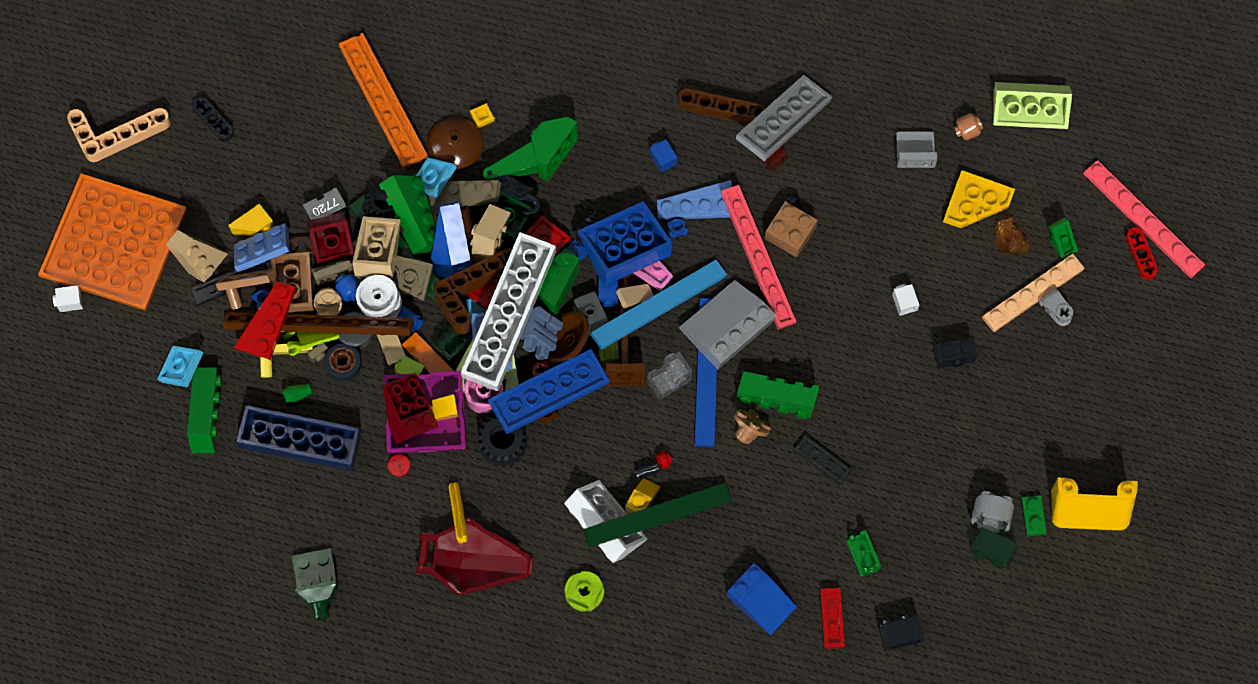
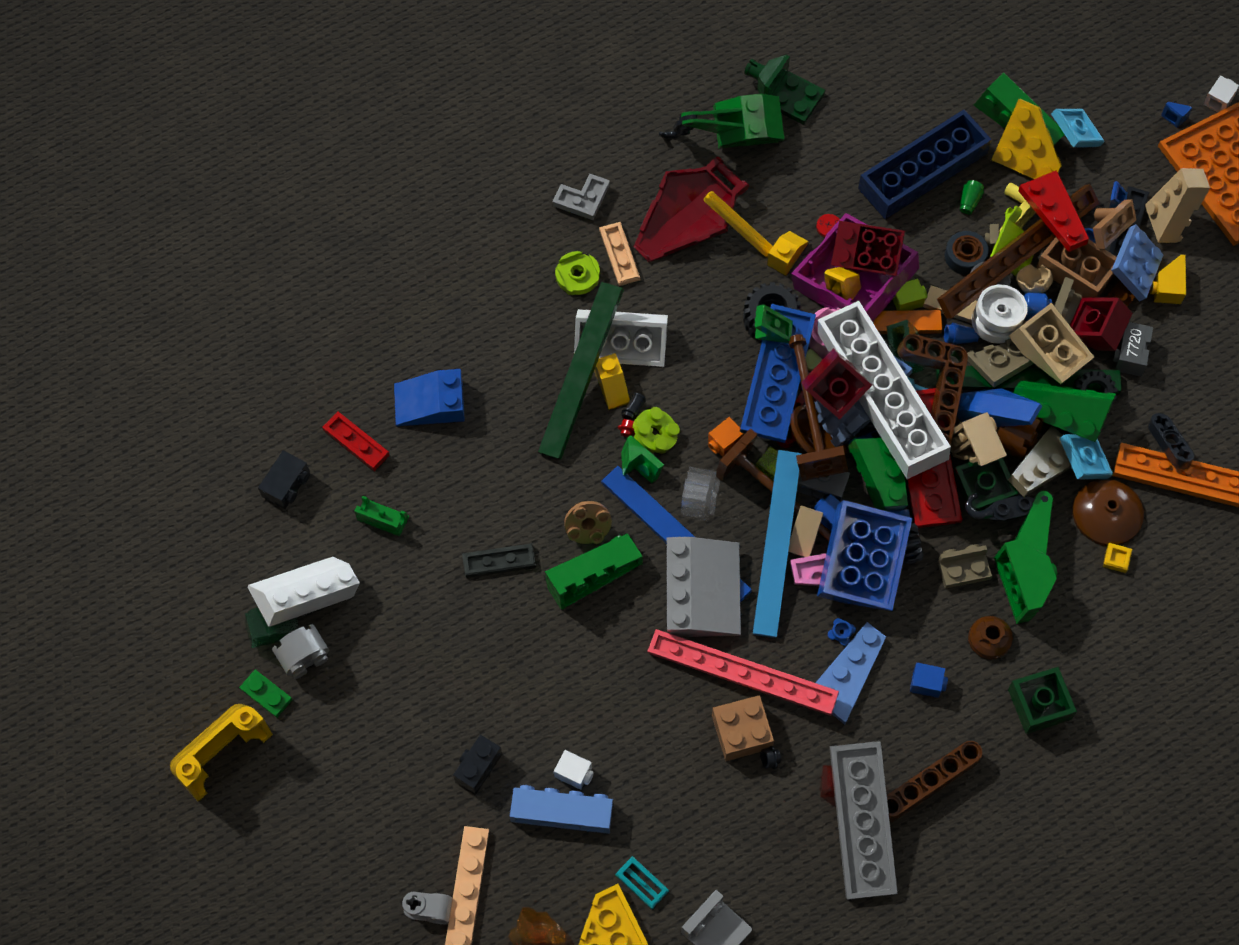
camera: 135 degrees right, 5 degrees down
(111, 313) = (1176, 113): none -> blue slope
(216, 300) = (1118, 195): none -> blue slope
(226, 383) = (1027, 143): none -> yellow plate
(368, 140) = (1163, 428): none -> black beam
(376, 581) = (737, 121): none -> green slope
(443, 472) = (786, 252): none -> yellow slope
(525, 413) = (772, 325): none -> green slope
(526, 635) = (585, 201): none -> light grey plate
(535, 335) = (836, 383): none -> dark red slope
(543, 579) = (619, 254): none -> light nougat tile
(570, 192) = (964, 566): none -> dark tan bracket
(590, 309) = (822, 461): none -> reddish brown tile
(601, 153) = (987, 647): none -> reddish brown piece
(616, 396) = (724, 437): none -> orange brick
(618, 84) = (1042, 700): none -> dark green brick
(645, 433) = (663, 423): none -> lime plate
(681, 436) = (638, 457): none -> green slope
(921, 212) = (657, 897): none -> teal tile
(934, 285) = (561, 809): none -> medium blue brick
(956, 546) = (304, 590): none -> white slope

